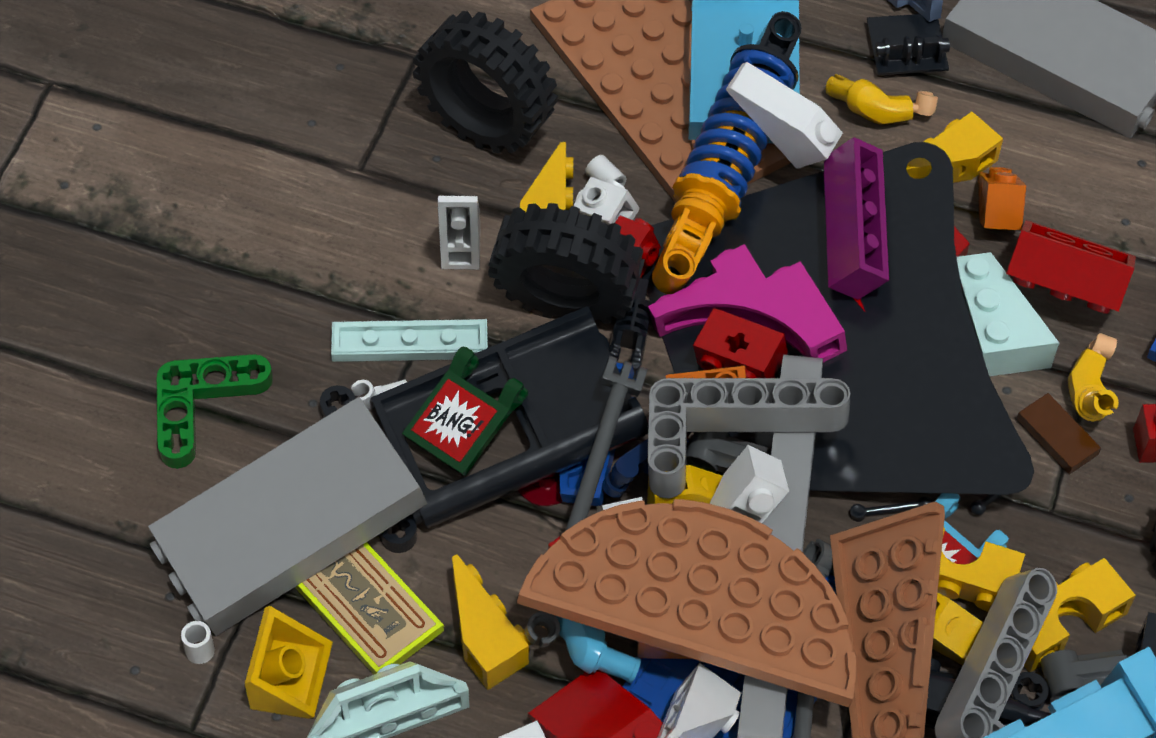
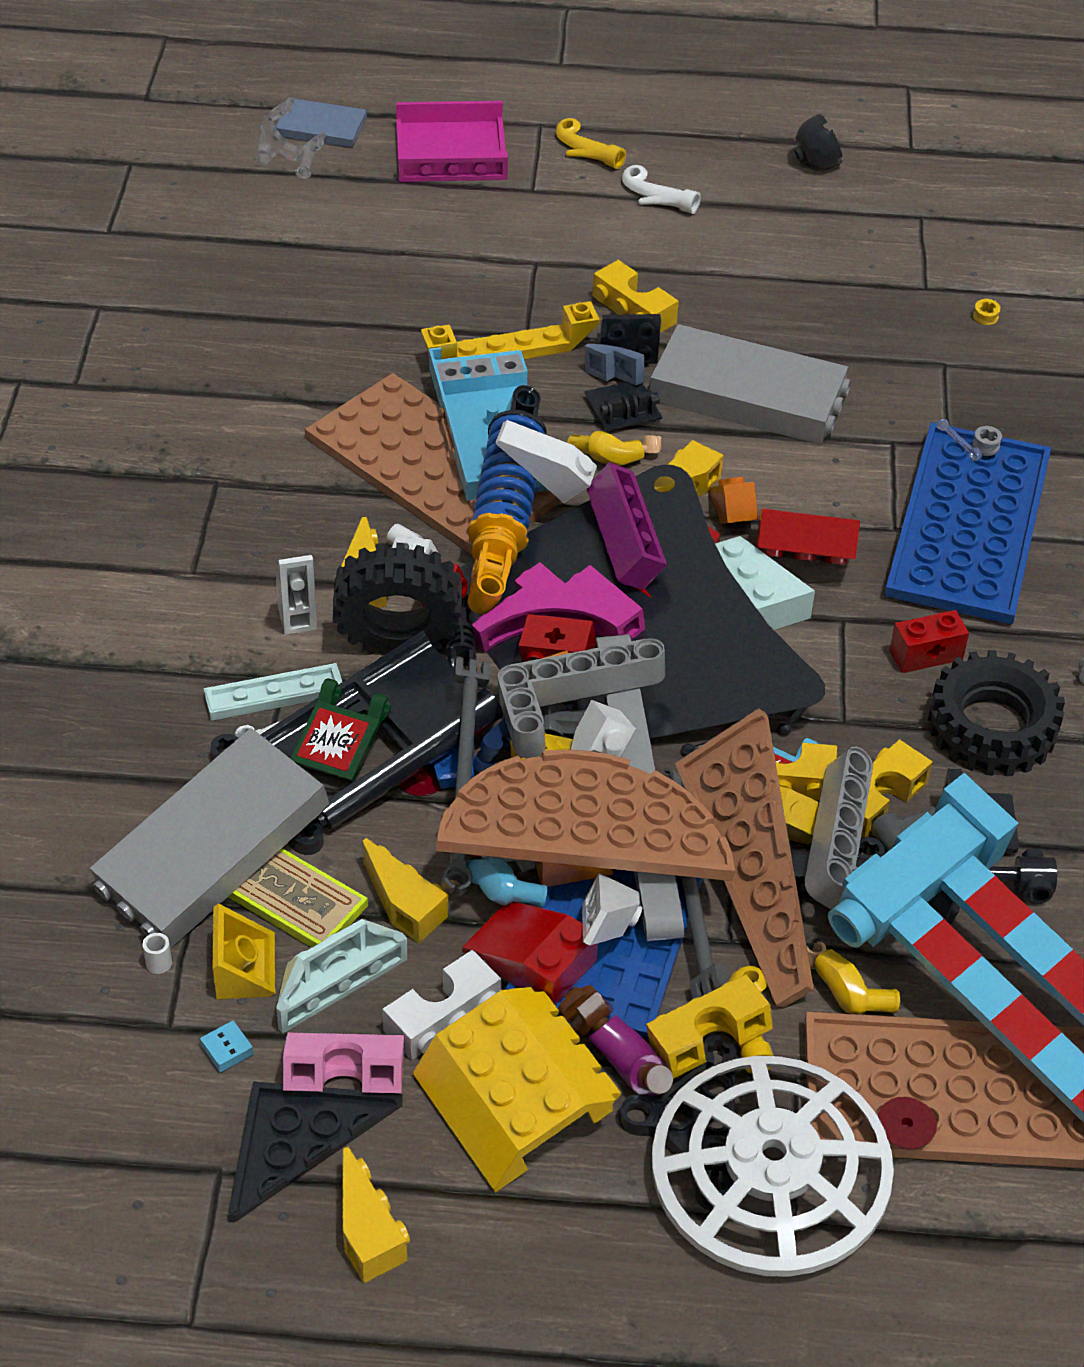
camera: 15 degrees left, 10 degrees down
(185, 393) = (90, 766): green beam -> none
(468, 102) = (274, 504): black tyre -> none
(1058, 433) = (833, 662): reddish brown tile -> none
(1084, 381) = (844, 625): yellow arm -> none

